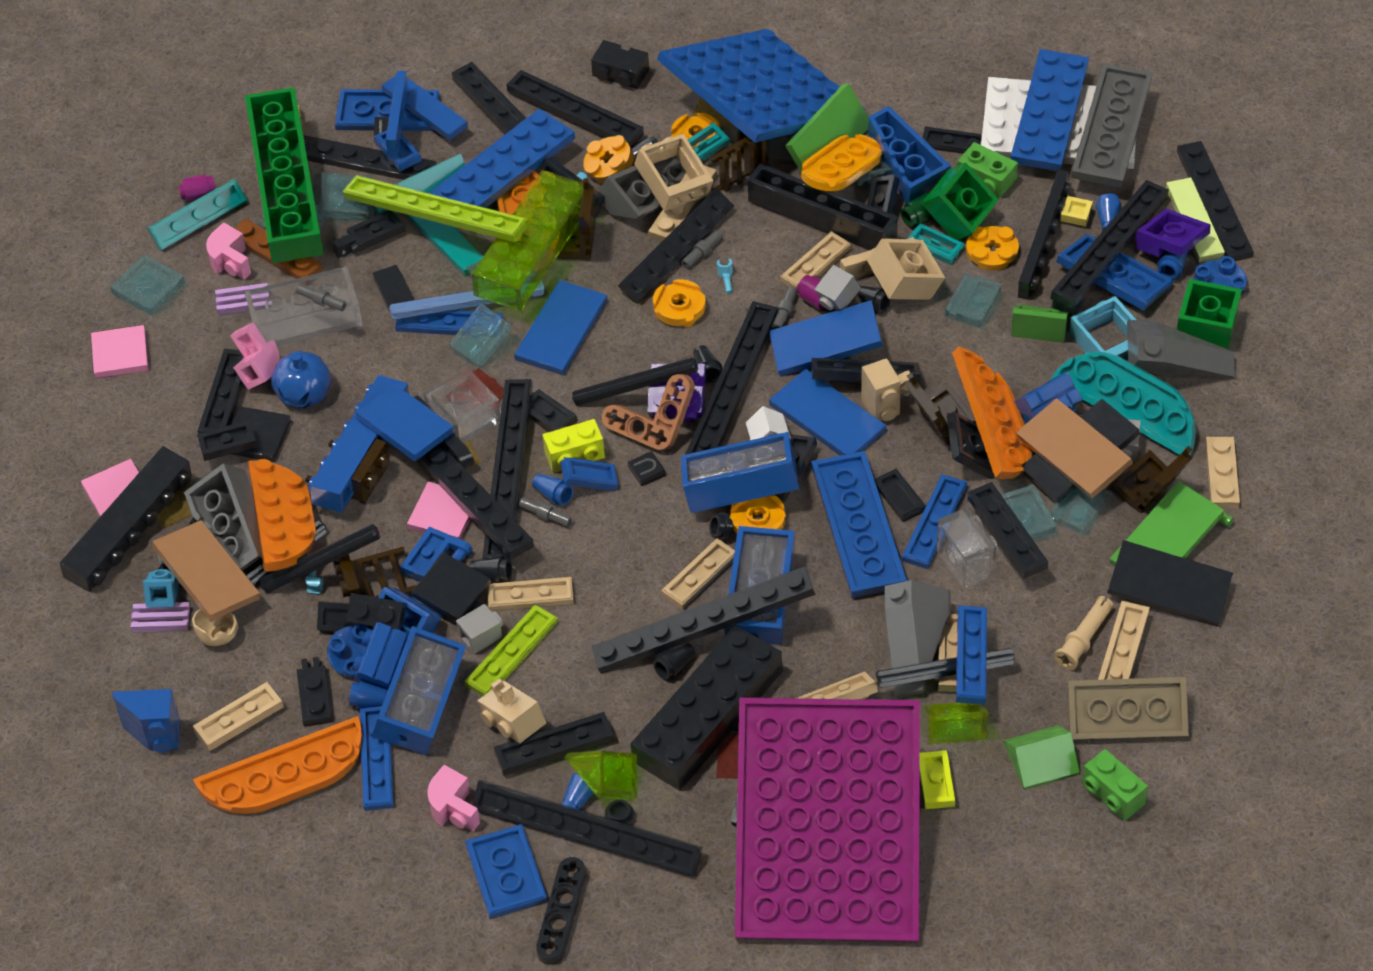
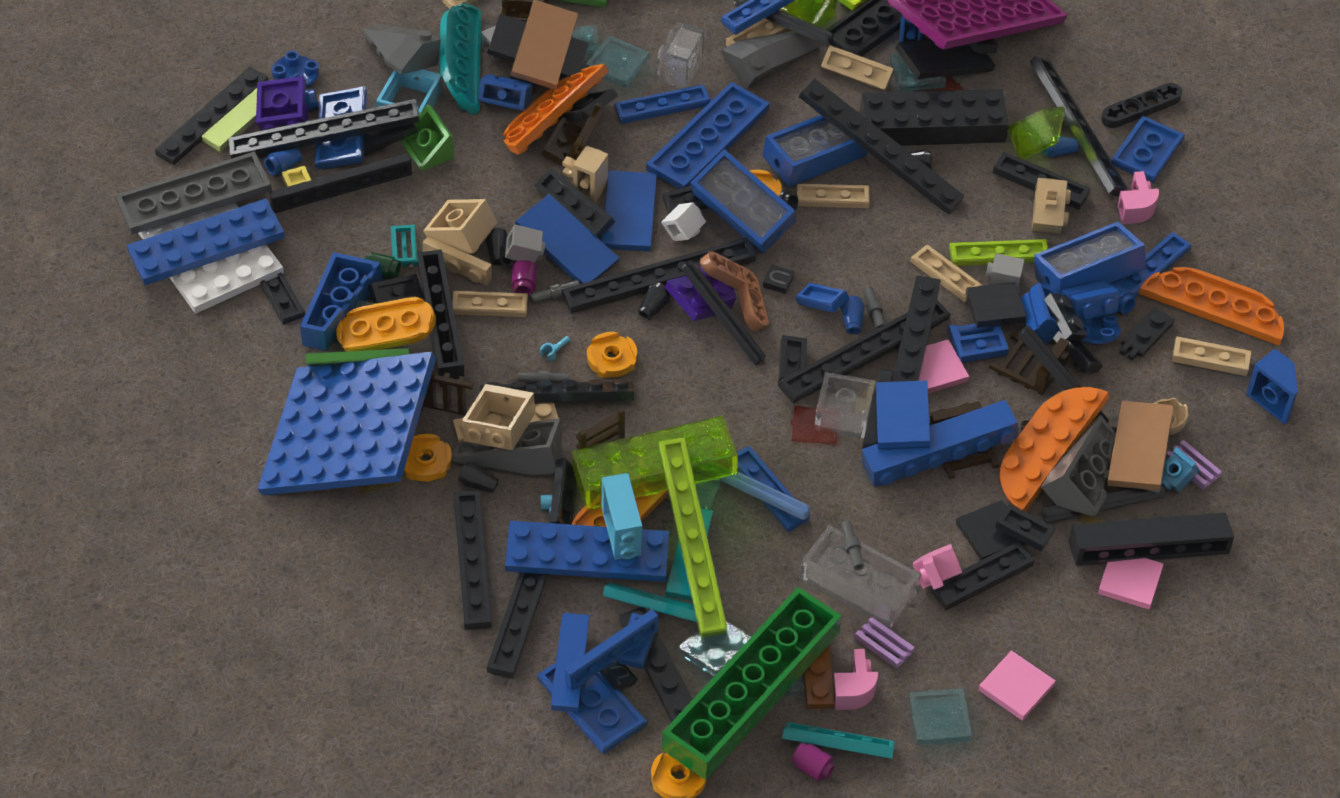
camera: 135 degrees left, 0 degrees up
(301, 379) = (924, 525): blue piece -> none
(368, 233) = (745, 603): black hinge -> none
(392, 286) = (773, 548): black tile -> none
(480, 335) = (768, 447): clear light blue plate -> none
(495, 568) = (953, 301): black cone -> none
(506, 156) = (621, 516): none -> medium azure window
(560, 327) = (730, 401): blue tile -> none
(575, 441) = (808, 321): neon yellow brick -> none
(599, 151) = (505, 505): light orange plate -> none
(620, 65) = (394, 557): black brick -> none
(710, 146) = (440, 437): teal tile -> none
(899, 495) = (659, 133): black tile -> none
(960, 201) = (362, 233): green brick -> none
(973, 300) = (441, 187): clear light blue plate -> none
(992, 168) = (302, 251): bright green brick -> none
(1001, 237) = (379, 198): light orange plate -> none
(1007, 530) = (643, 47): black plate -> none
(1209, 312) = (342, 50): green brick -> none

